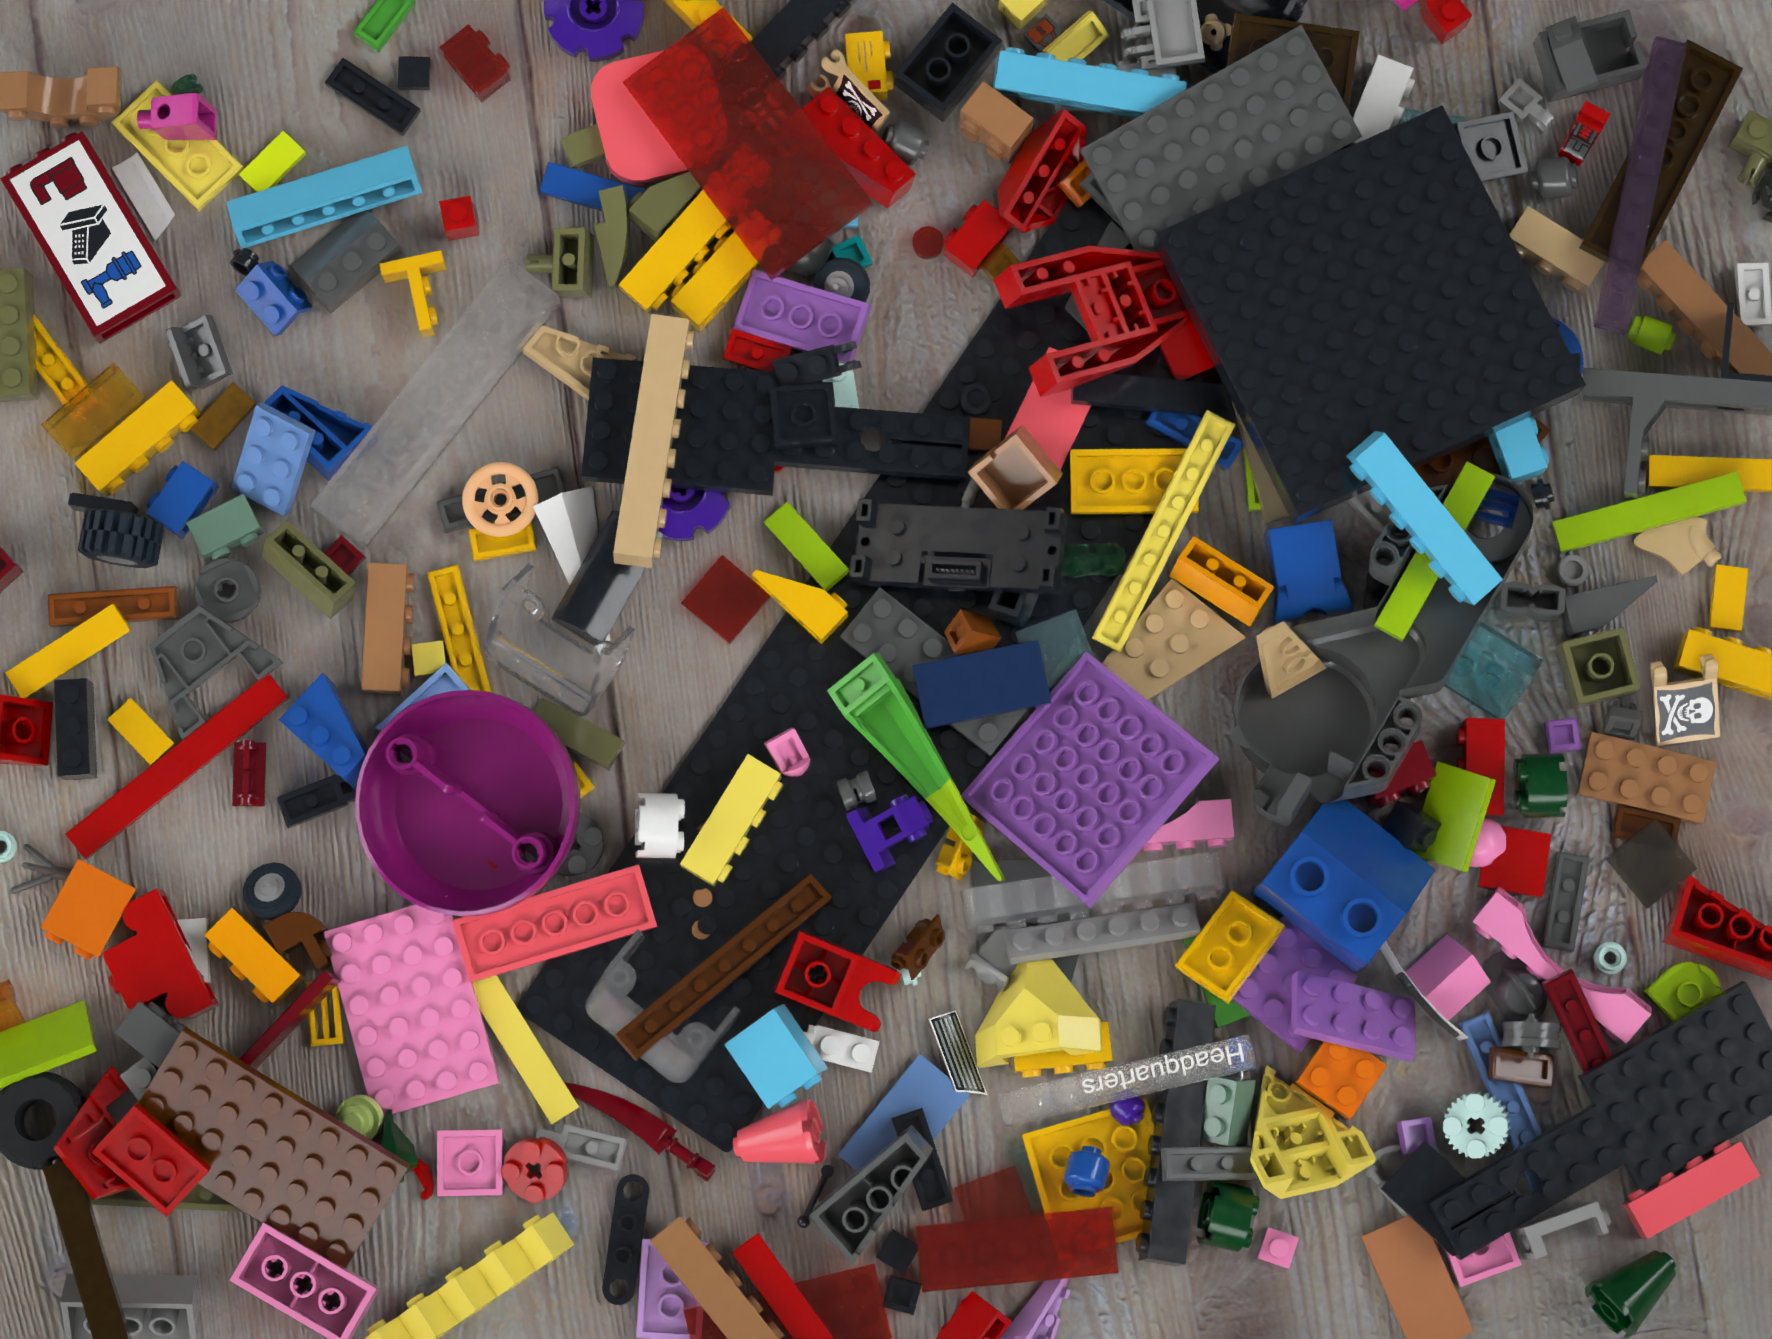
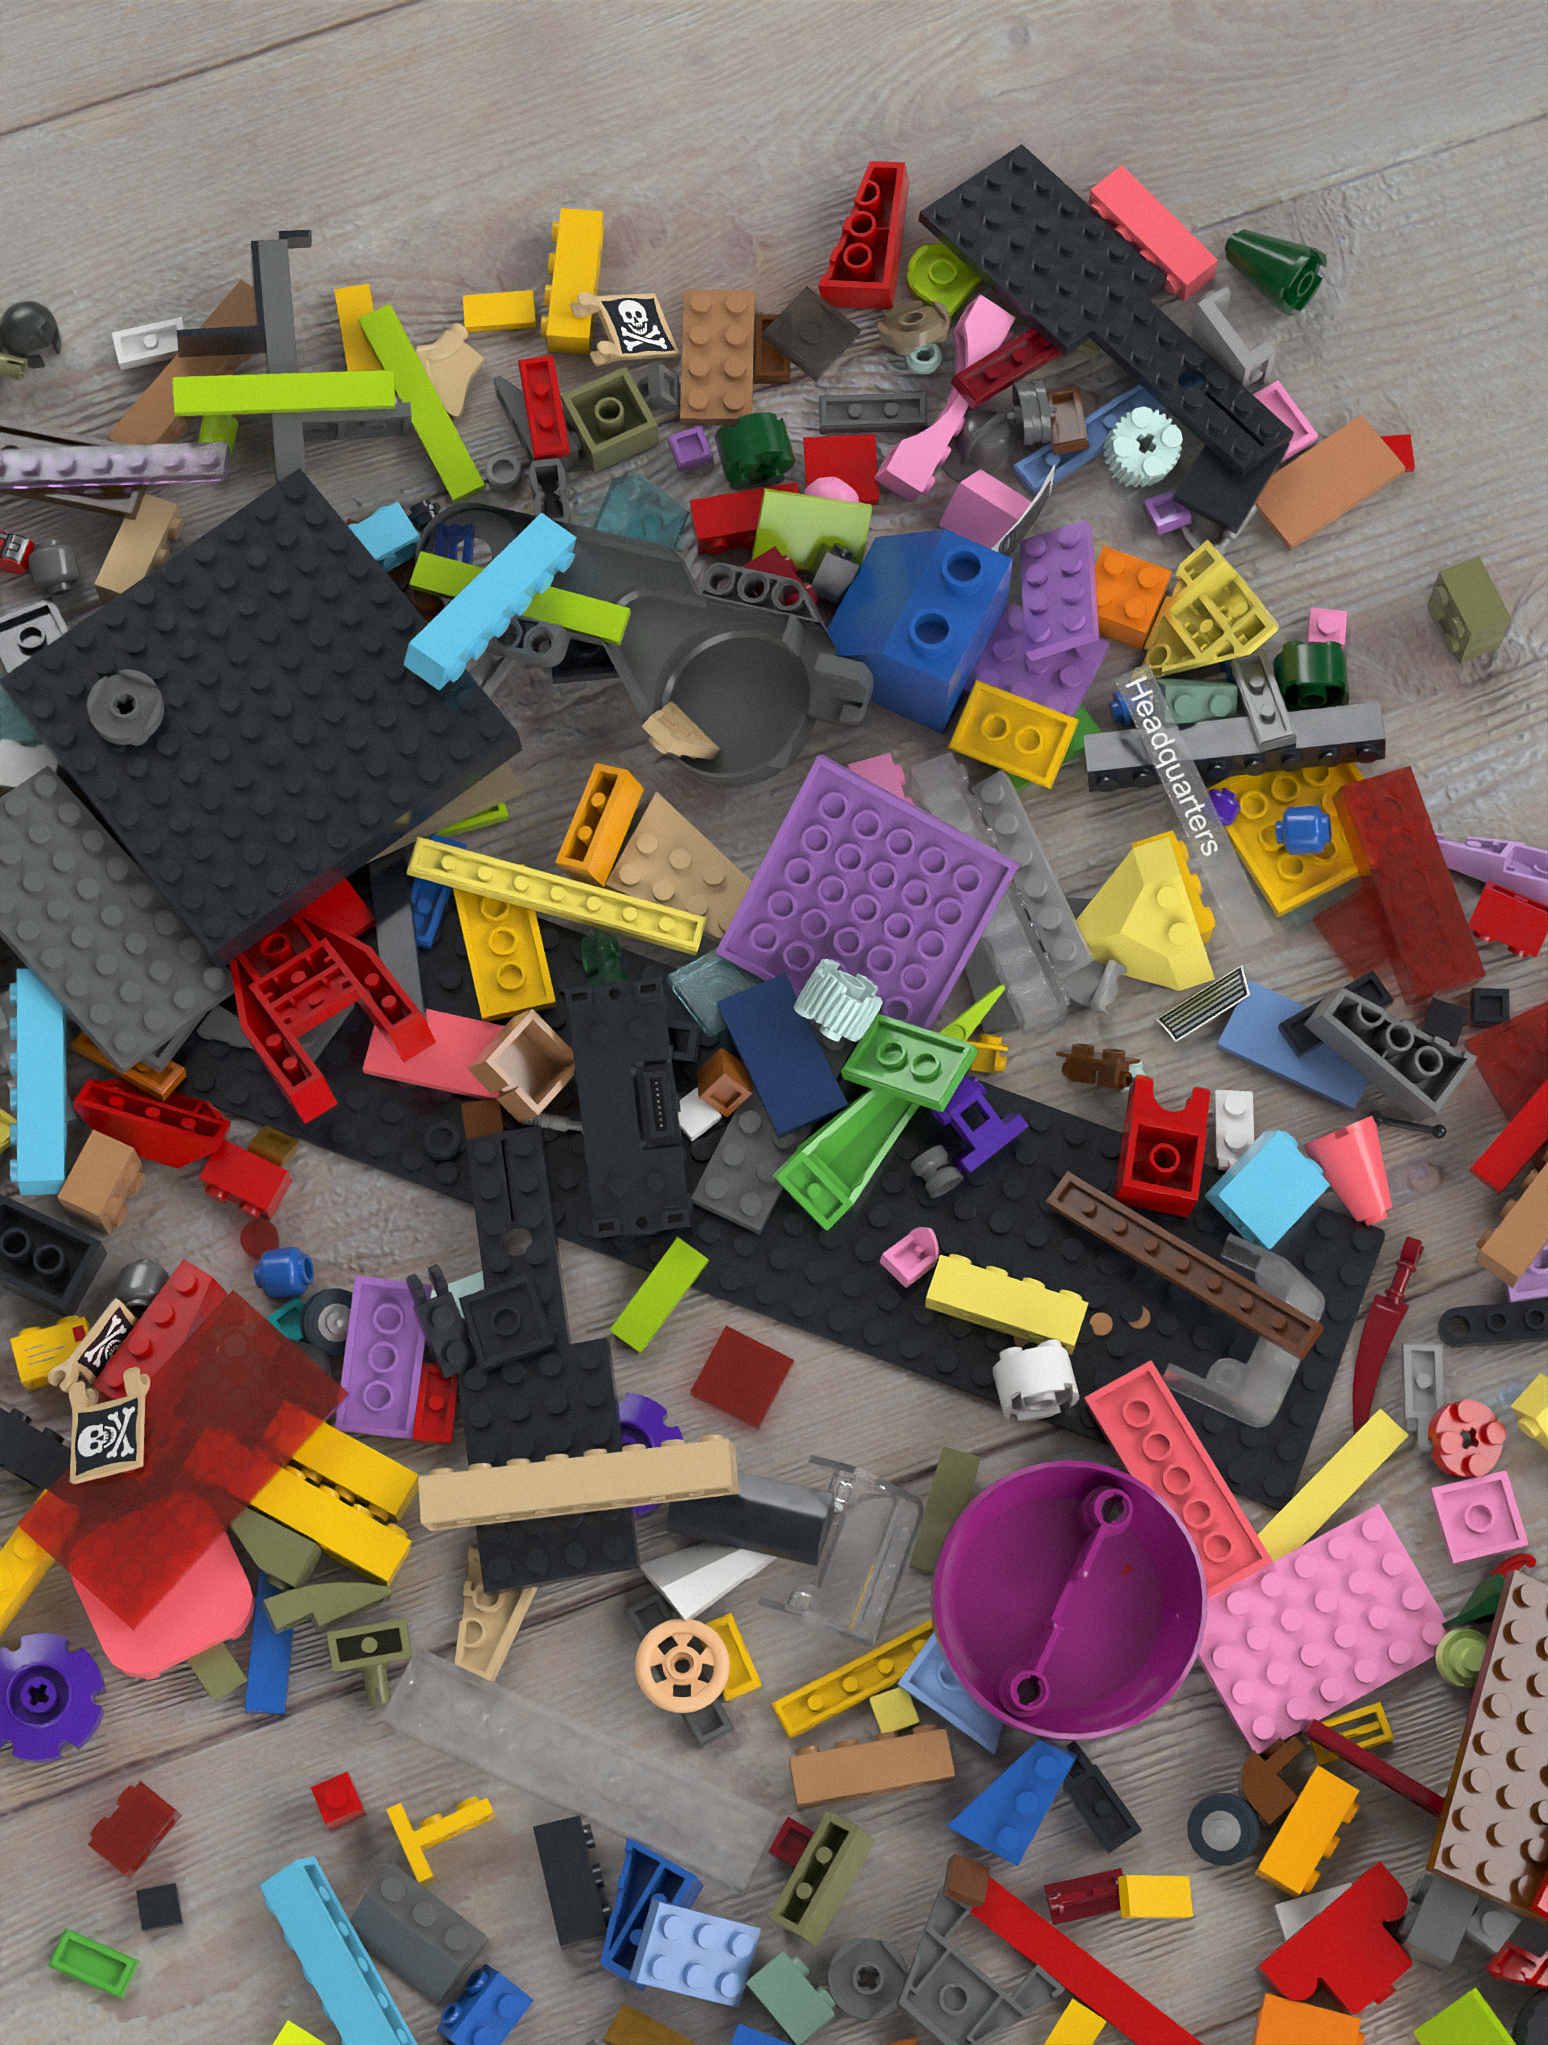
camera: 100 degrees left, 10 degrees down
(232, 823) = (1155, 1896): none -> yellow tile
(278, 679) = (966, 1881): none -> reddish brown tile
(354, 381) = (572, 1881): none -> black brick
(372, 96) = (199, 1953): black tile -> none
(778, 84) = (109, 1434): none -> flag
(806, 604) = (735, 1265): yellow slope -> none
(892, 254) = (284, 1272): none -> blue head
(948, 784) = (909, 1062): none -> bright green tile
(949, 604) = (696, 1115): none -> white tile
(1012, 737) = (839, 1002): none -> light aqua brick
(1305, 571) = (566, 740): blue piece -> none
(1386, 181) = (131, 727): none -> dark grey plate
(1616, 611) = (544, 408): none -> red tile
(1625, 943) = (914, 326): none -> dark tan plate
(1659, 384) = (283, 393): none -> lime tile

